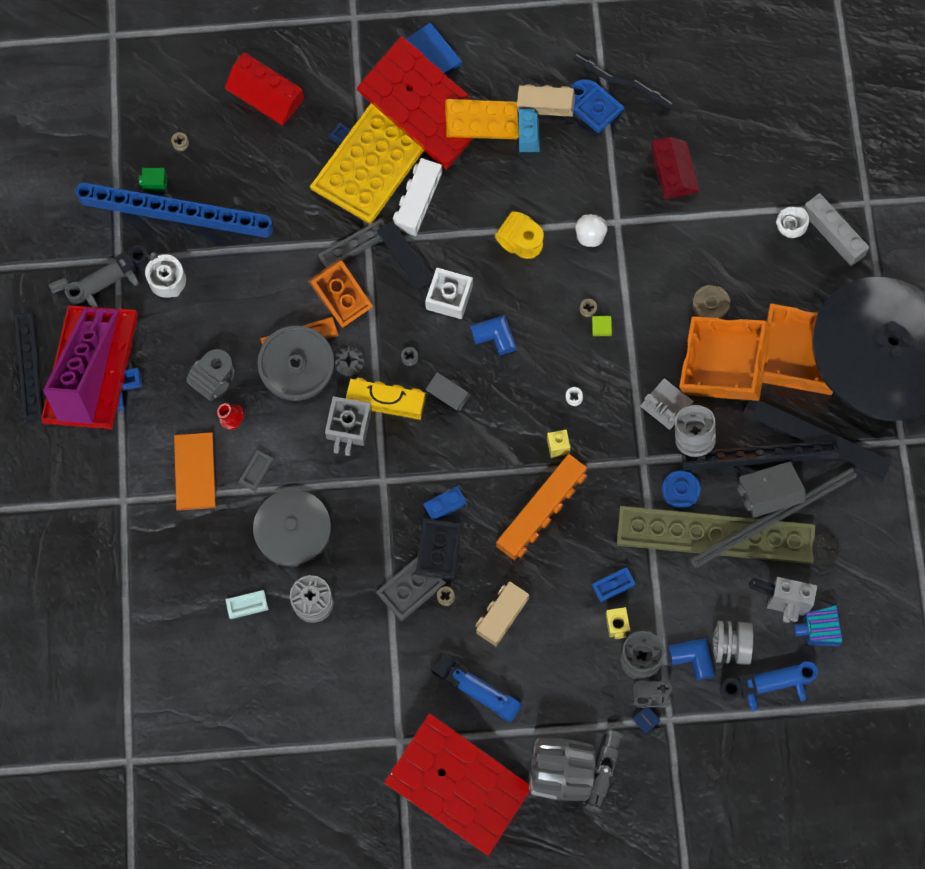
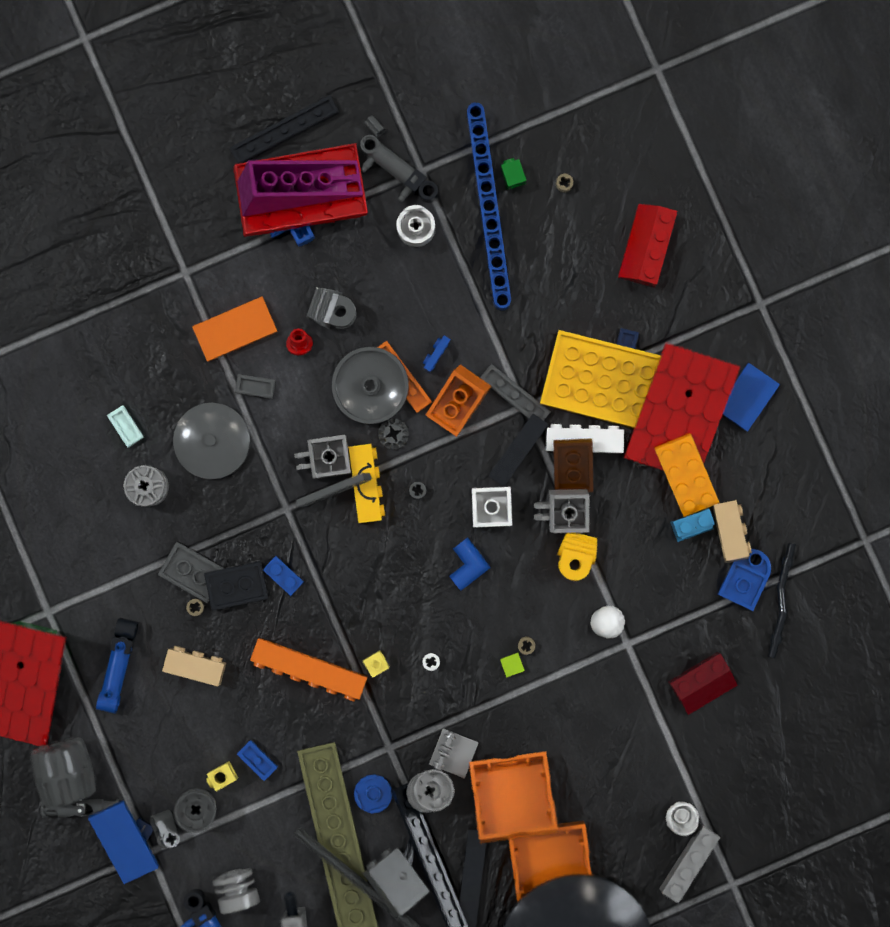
camera: 70 degrees right, 15 degrees up
(294, 303) = (431, 360): none -> blue plate
(380, 425) = (334, 489): none -> dark grey tile
(437, 210) = (573, 464): none -> reddish brown plate
(448, 392) = (392, 540): dark grey hinge -> none
(476, 239) = (559, 502): none -> light grey hinge
(651, 738) = (123, 842): none -> blue tile
(695, 652) = (220, 856): blue brick -> none
(711, 302) = (572, 763): dark tan tile -> none

